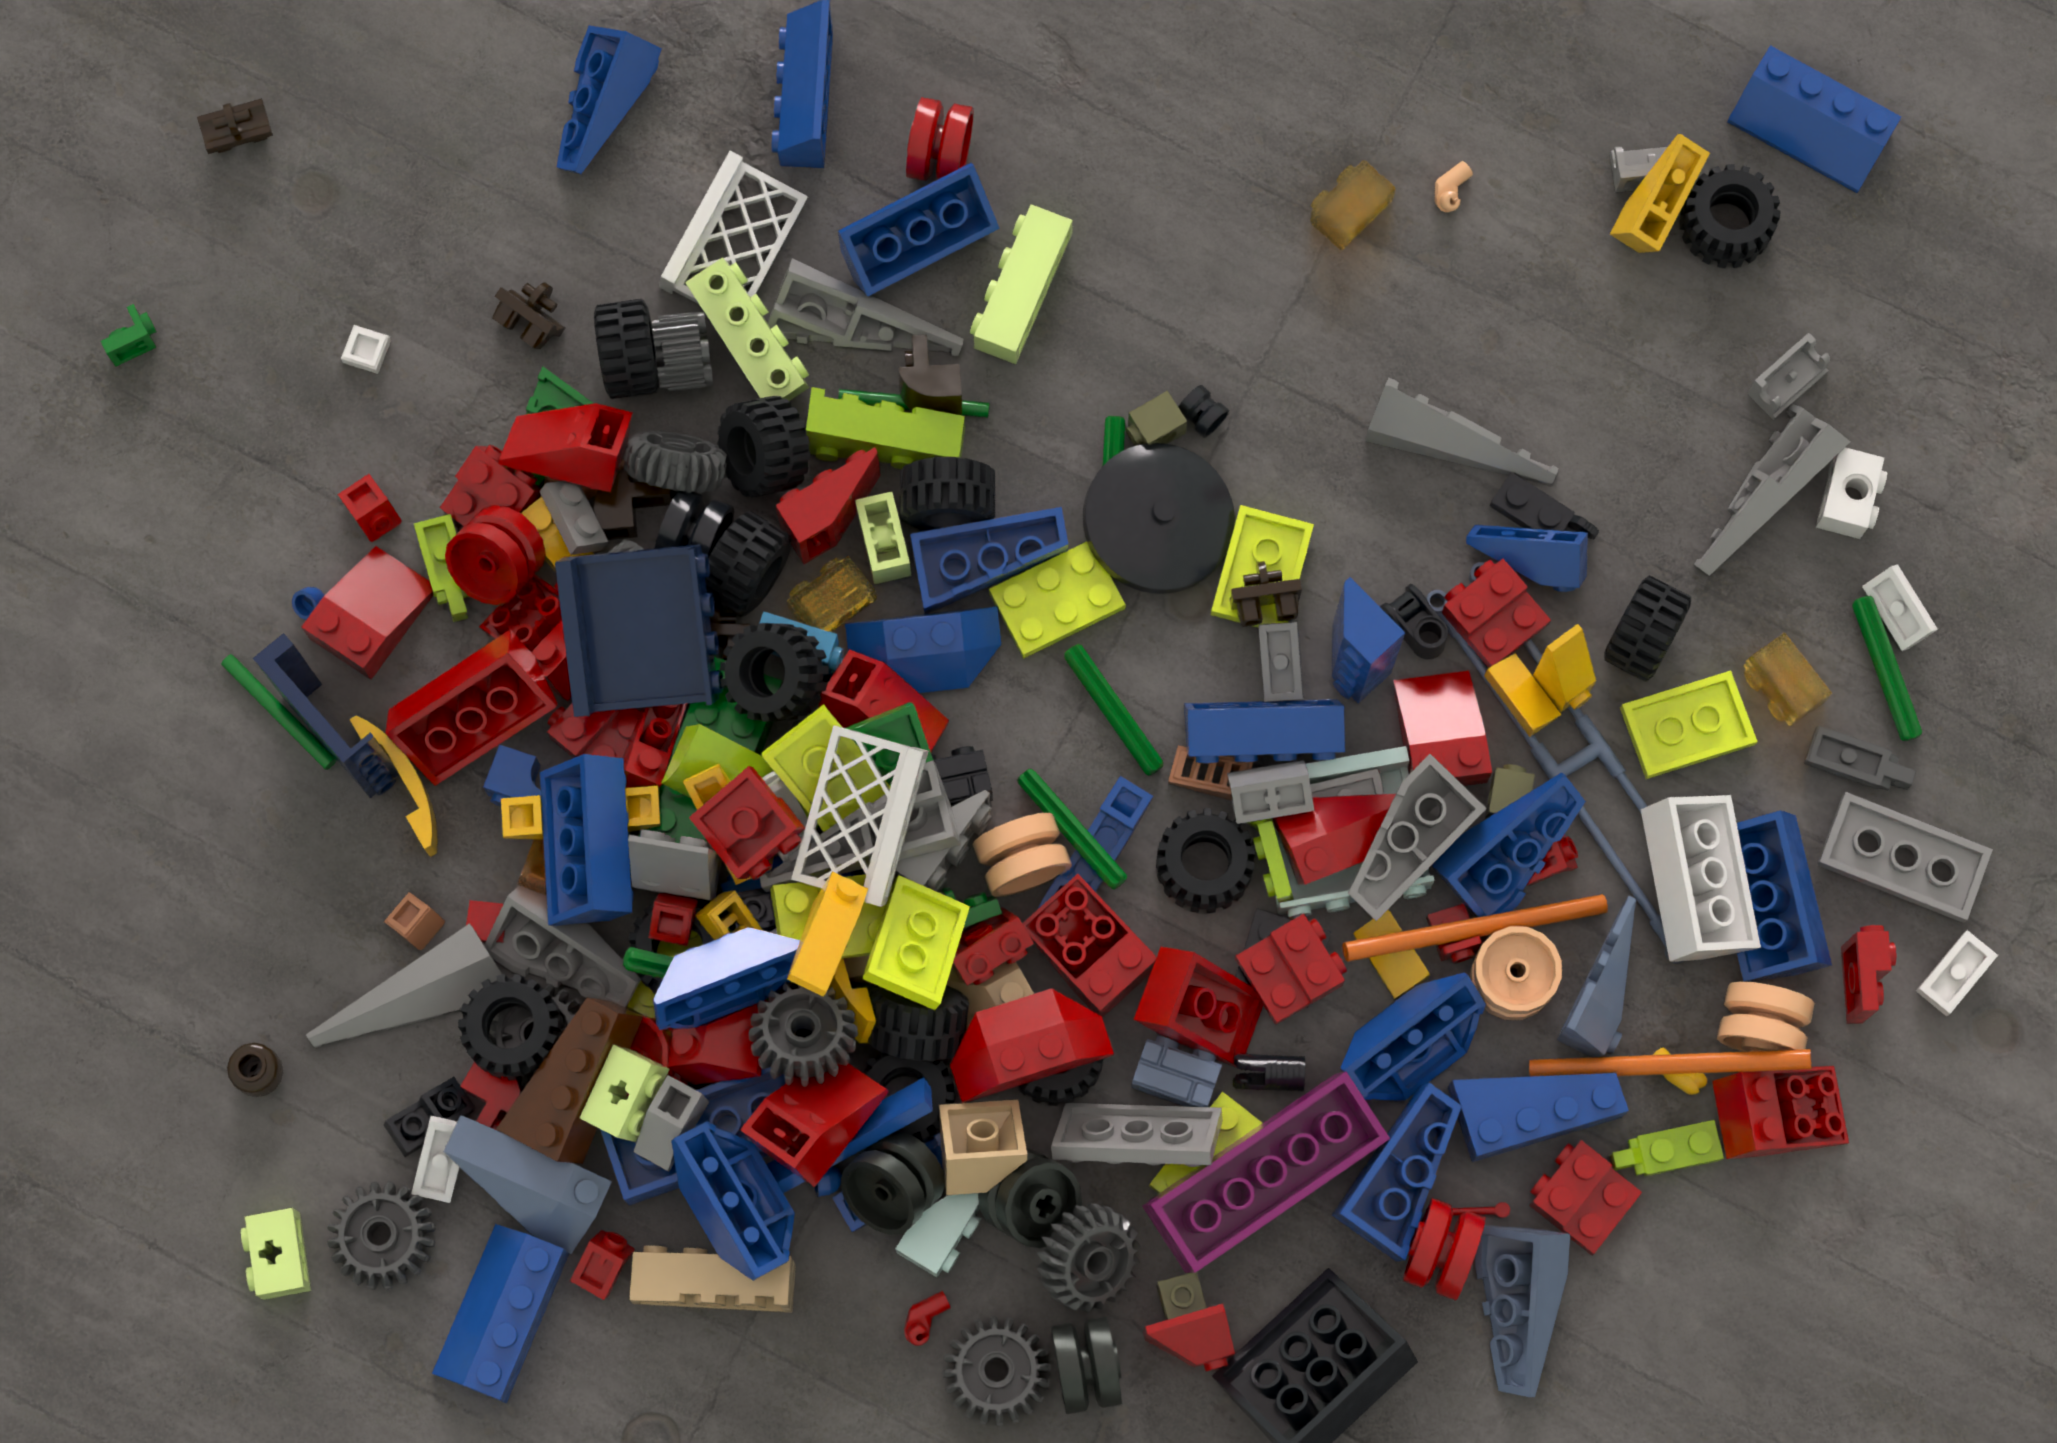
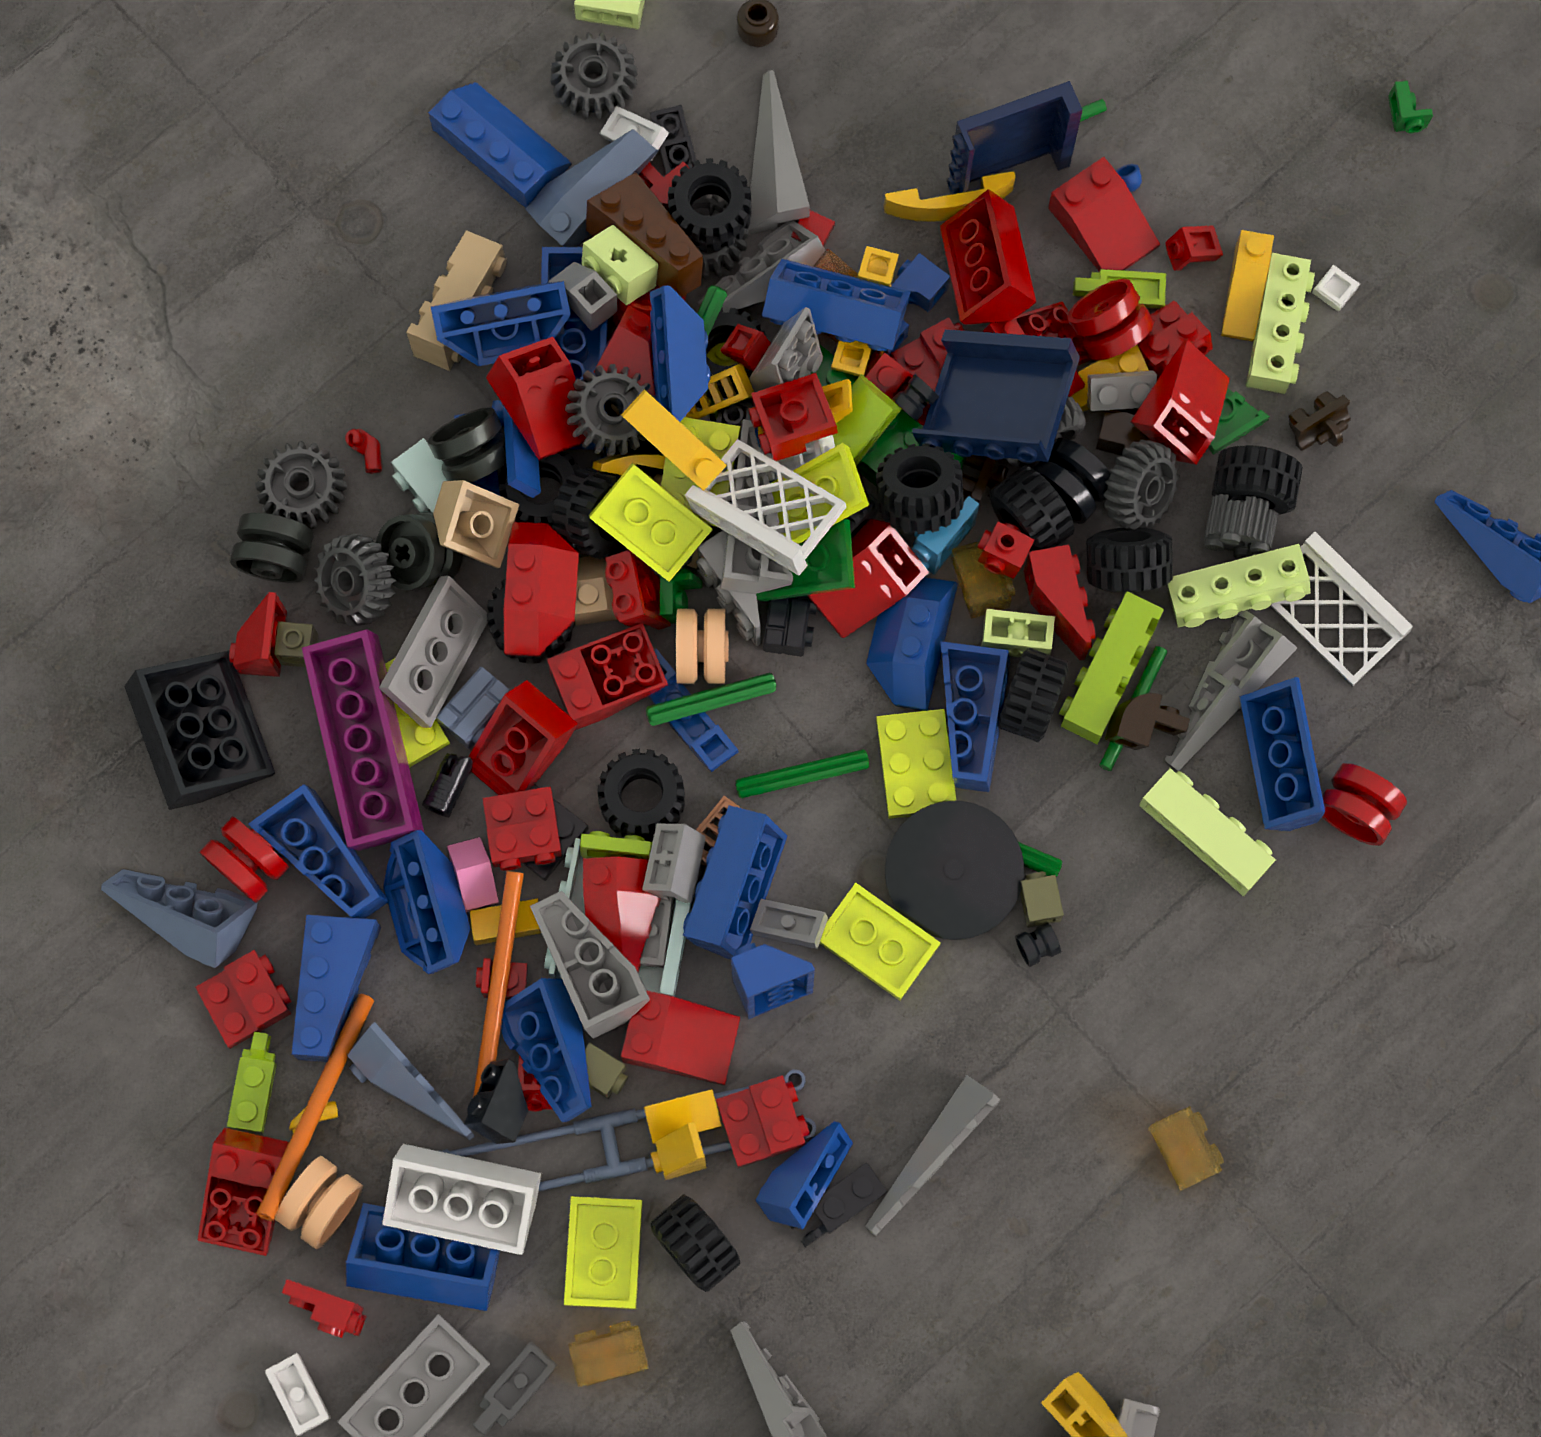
camera: 110 degrees right, 0 degrees up
(395, 437) = (1247, 285): none -> yellow slope
(415, 921) = (834, 177): nougat slope -> none
(430, 390) = (1279, 324): none -> yellowish green brick
(602, 1263) = (507, 227): red bracket -> none
(666, 720) = (915, 397): none -> black wheel
(802, 572) = (1004, 549): none -> red brick
(804, 86) = (1454, 714): blue slope -> none
(1249, 599) = (847, 910): dark brown hips -> none
(1352, 1008) = (473, 874): none -> bright pink slope
(1415, 616) = (784, 1053): black piece -> none
(1447, 187) = (1174, 1243): light nougat arm -> none
(1500, 1210) = (263, 929): red hinge -> none
(1536, 964) = (439, 991): light nougat wheel -> none
(1588, 878) = (499, 1103): none -> black slope

